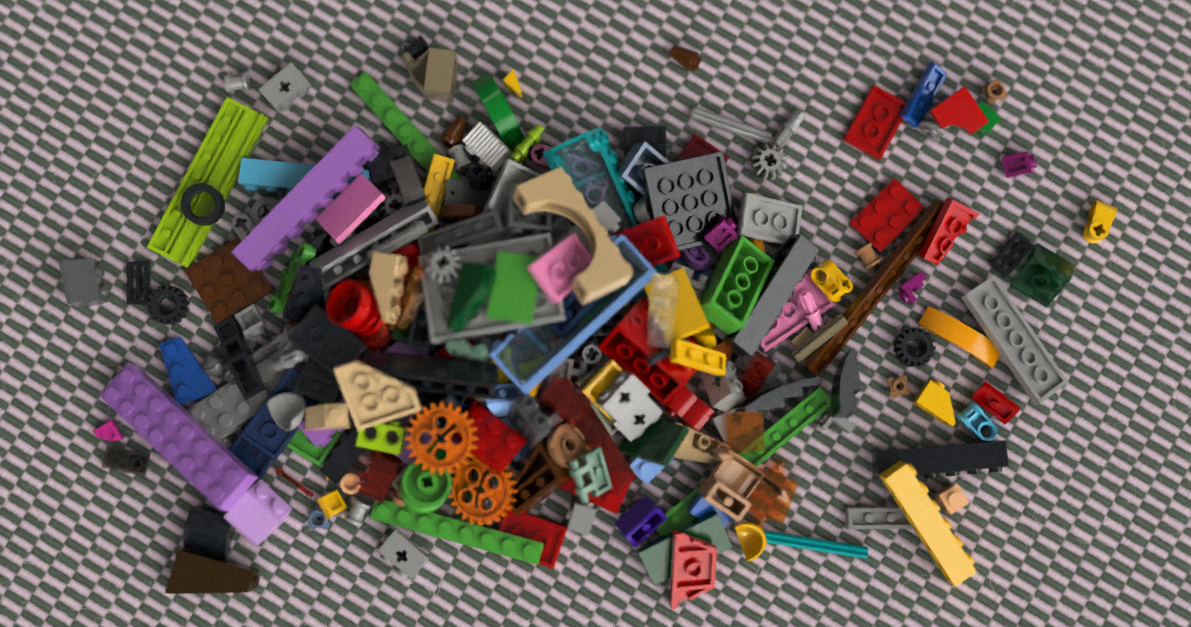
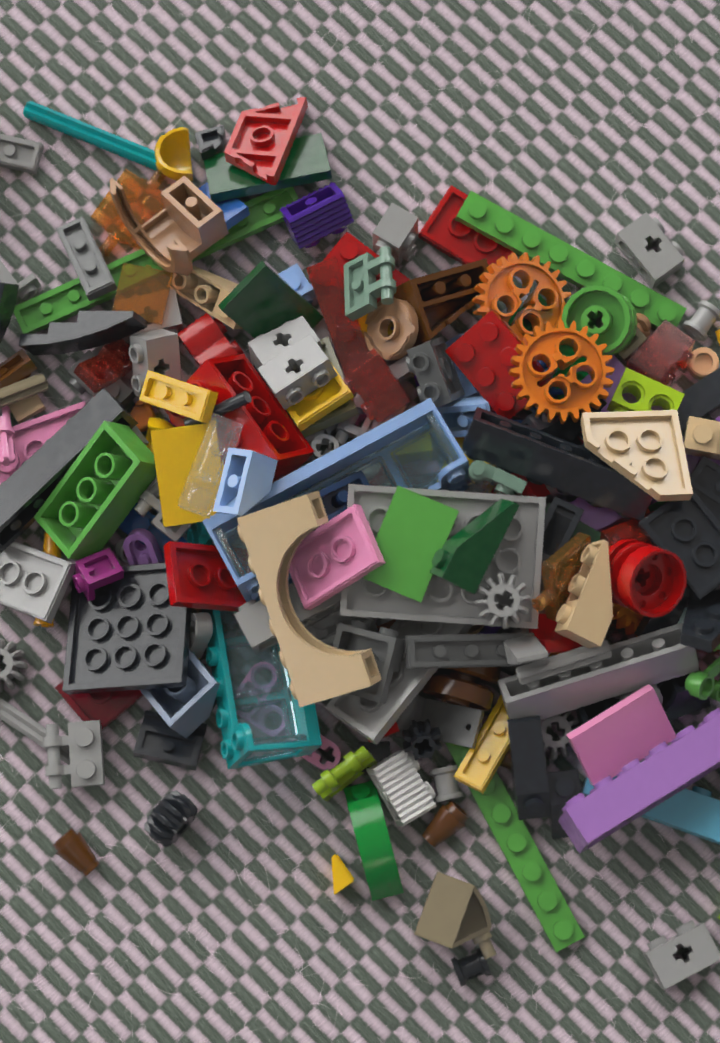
camera: 160 degrees left, 5 degrees down
(423, 241) = (524, 650): none -> light grey slope
(630, 90) = (170, 818): none -> black gear
(635, 302) = (244, 481): none -> light blue slope
(696, 116) = (84, 751): none -> light grey plate
(730, 559) = (210, 141): none -> black tile
(792, 451) = (86, 258): none -> tile

